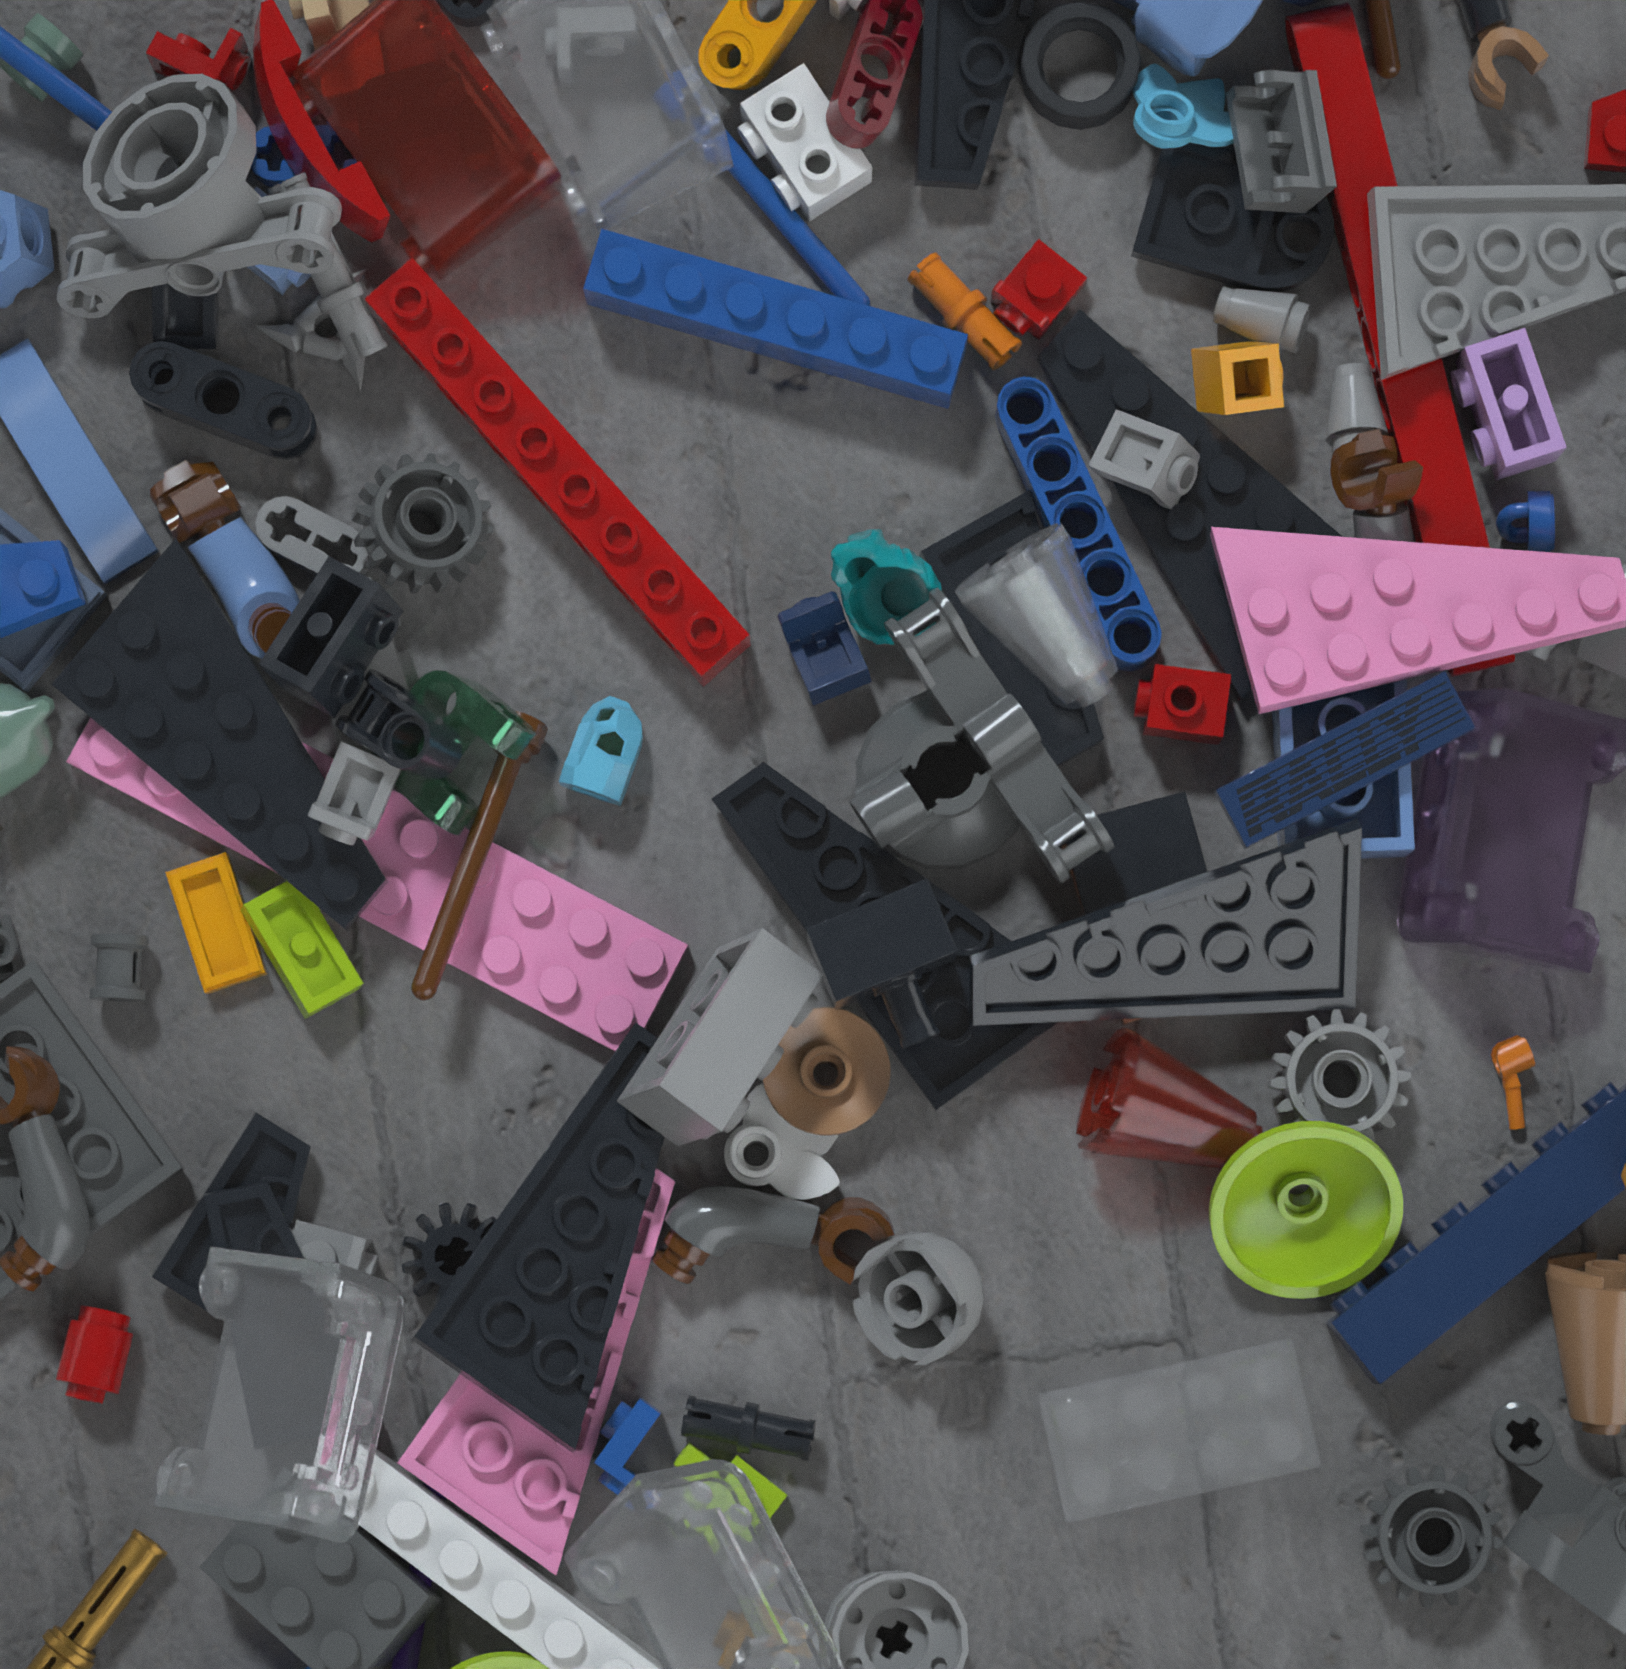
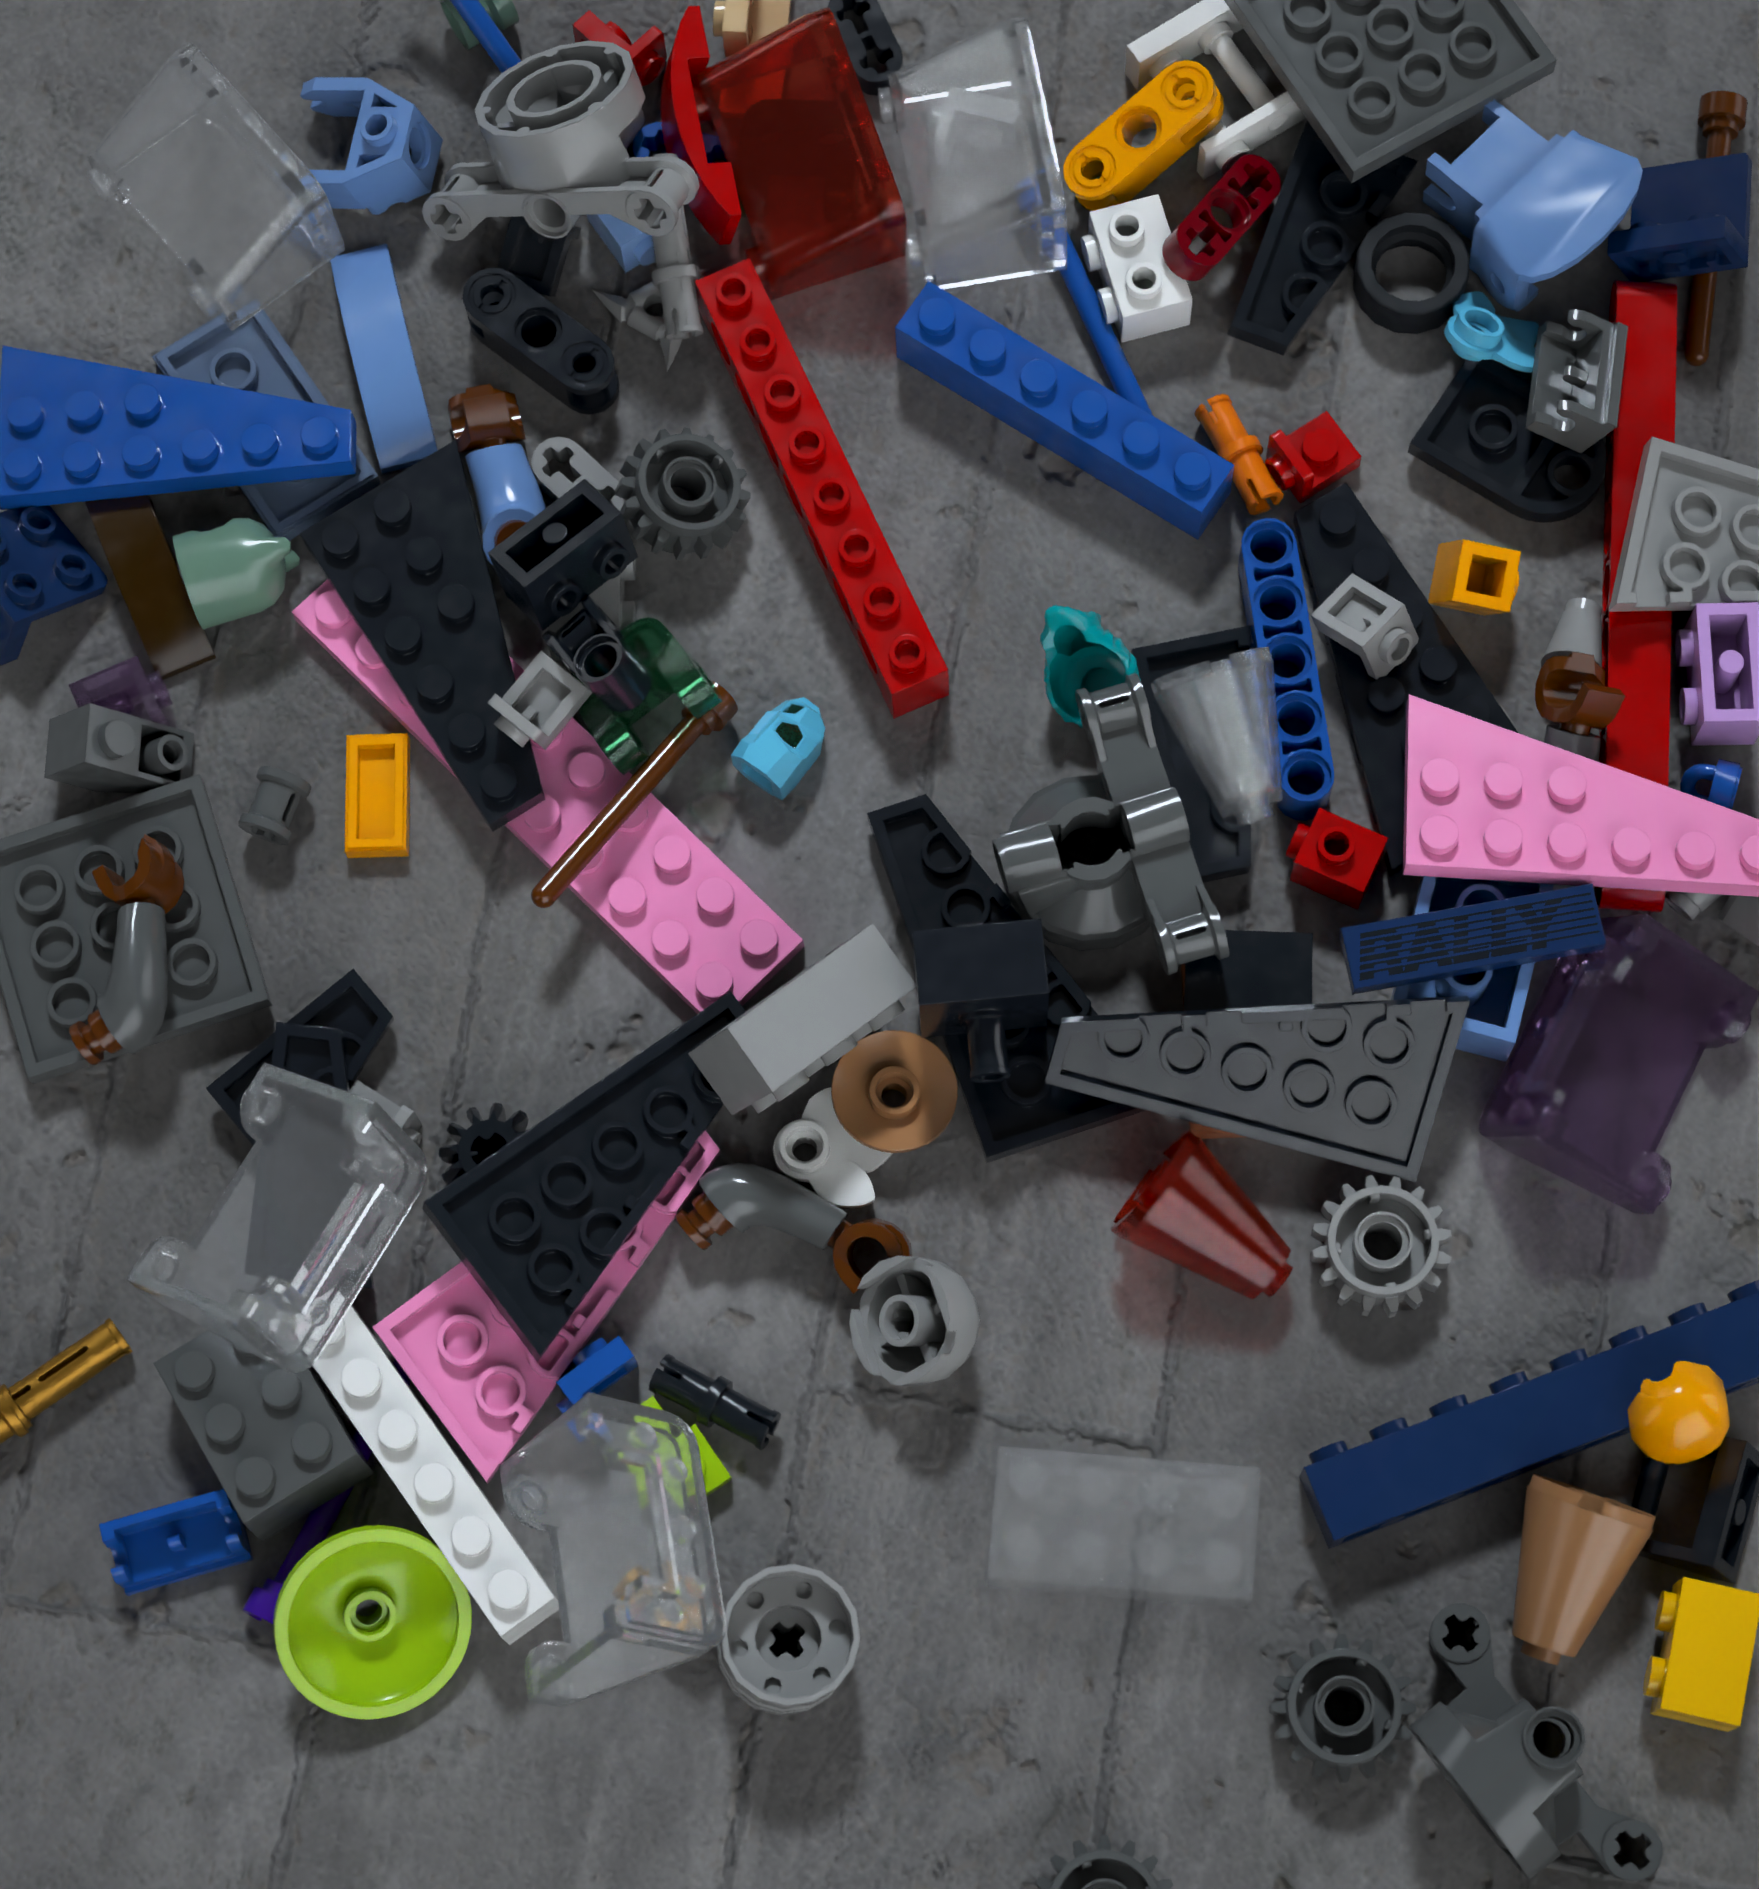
camera: 20 degrees right, 10 degrees down
(95, 1354) = (130, 1145): red brick -> none
(301, 948) = (446, 837): lime plate -> none
(823, 647) = (1014, 708): dark blue bracket -> none
(1264, 316) = (1517, 531): light grey cone -> none
(1310, 1239) = (1321, 1390): lime dish -> none
(1510, 1058) = (1550, 1278): orange hand -> none

